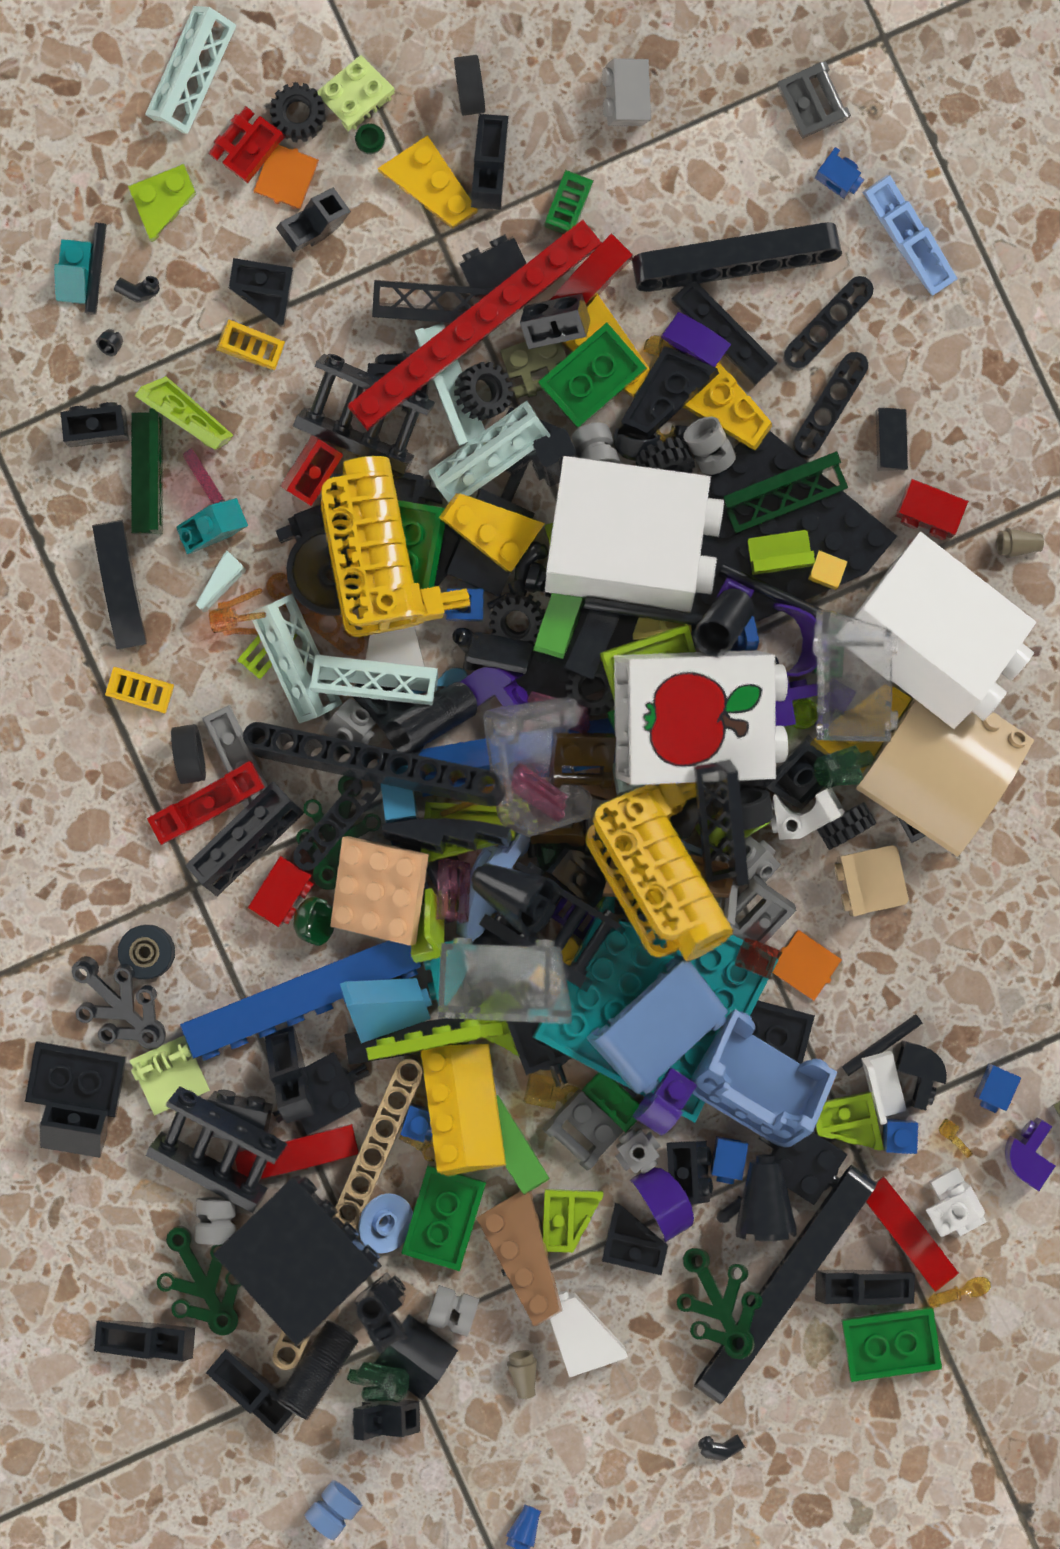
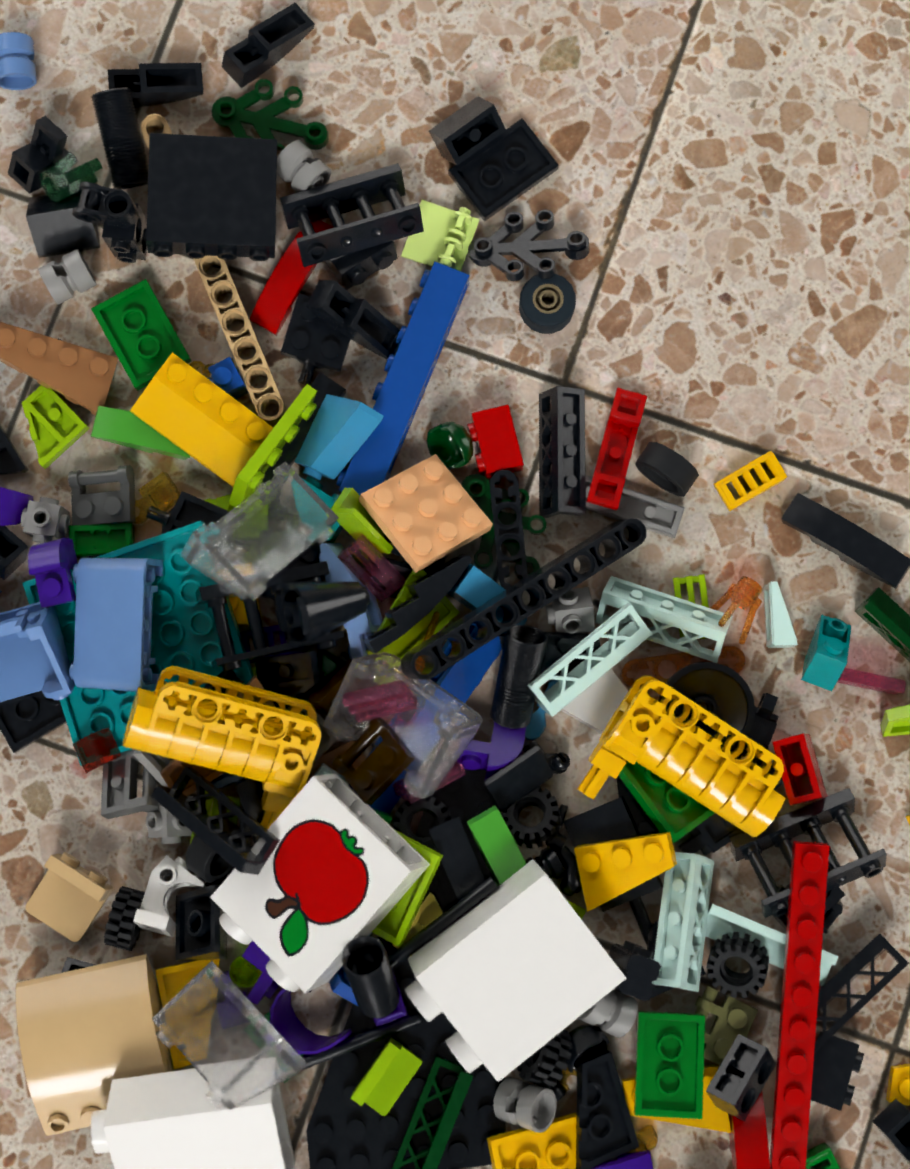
camera: 135 degrees right, 5 degrees down
(394, 1227) = (179, 288): light blue dish -> none
(474, 612) = (572, 795): blue brick -> none
(806, 965) = (57, 784): orange piece -> none
(827, 570) = (336, 1101): yellow slope -> none
(842, 767) = (173, 959): clear green rock -> none

